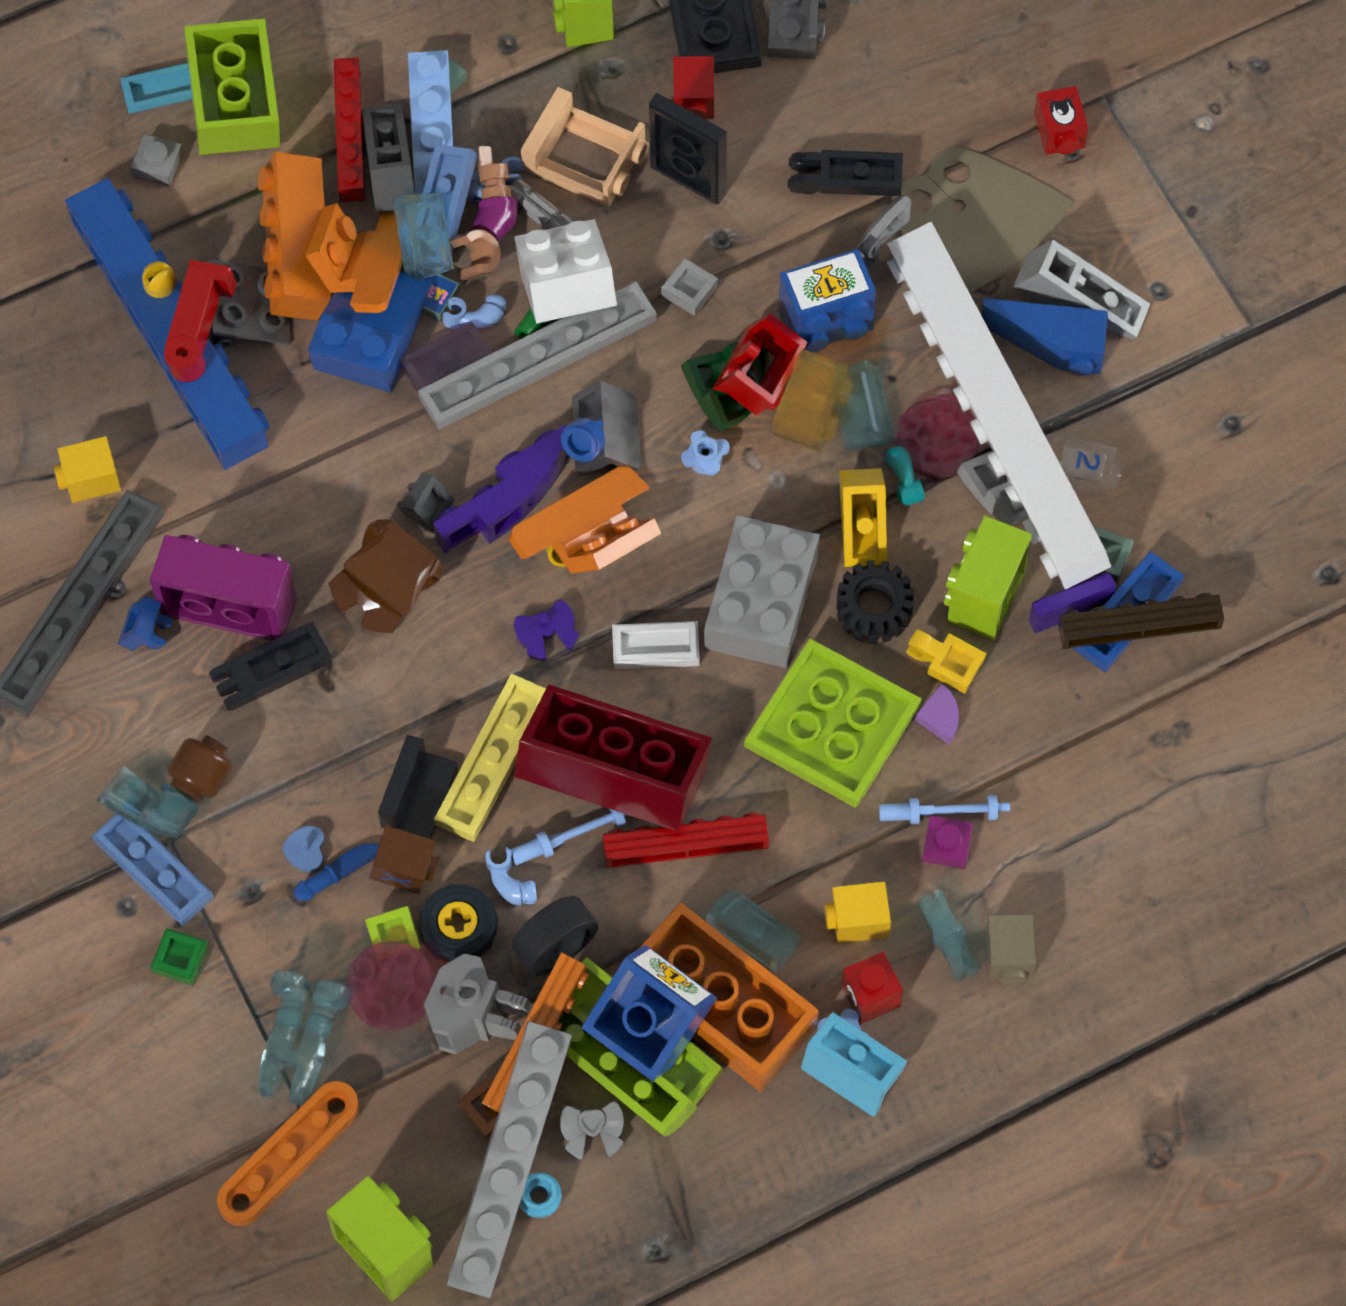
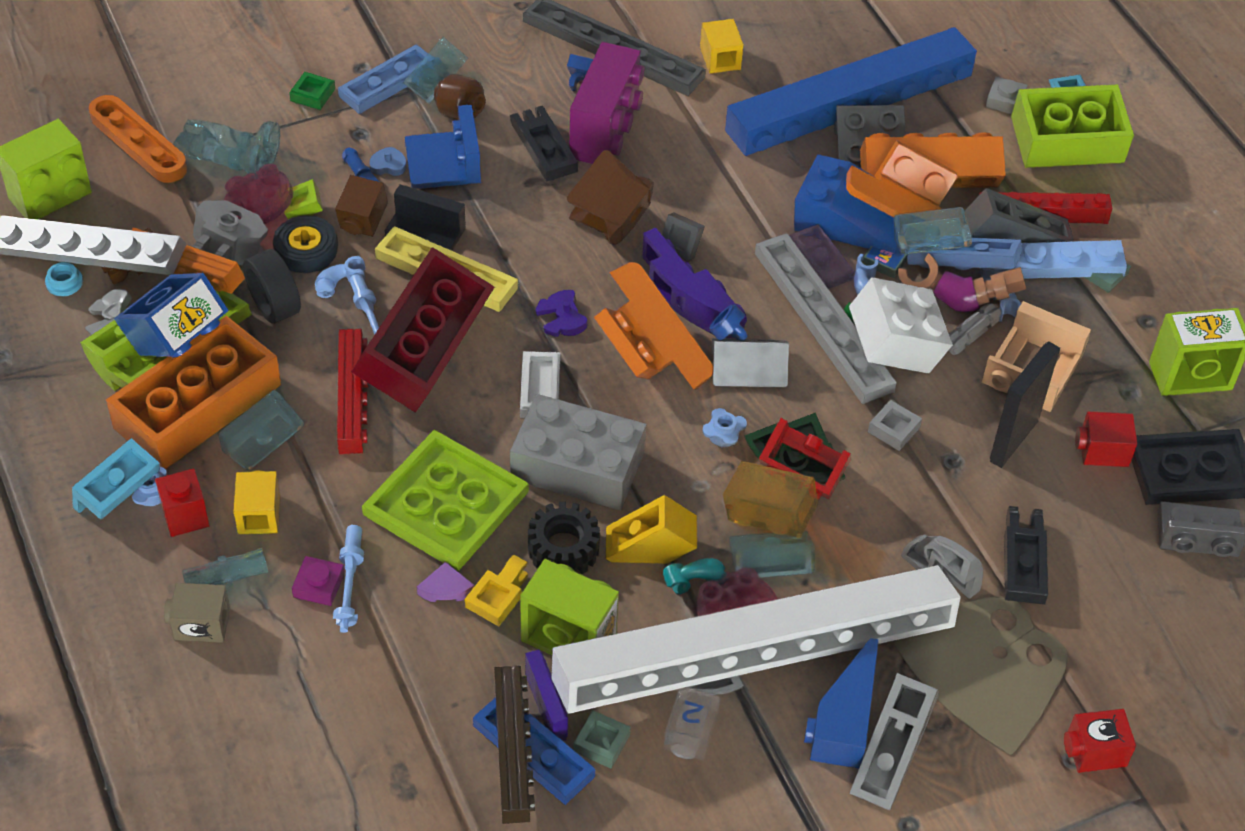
camera: 90 degrees right, 15 degrees down
(163, 283) = (881, 71): yellow hinge -> none
(194, 317) = (840, 84): red leg -> none
(301, 774) = (445, 156): none -> blue bracket
(828, 300) = (871, 511): blue brick -> none

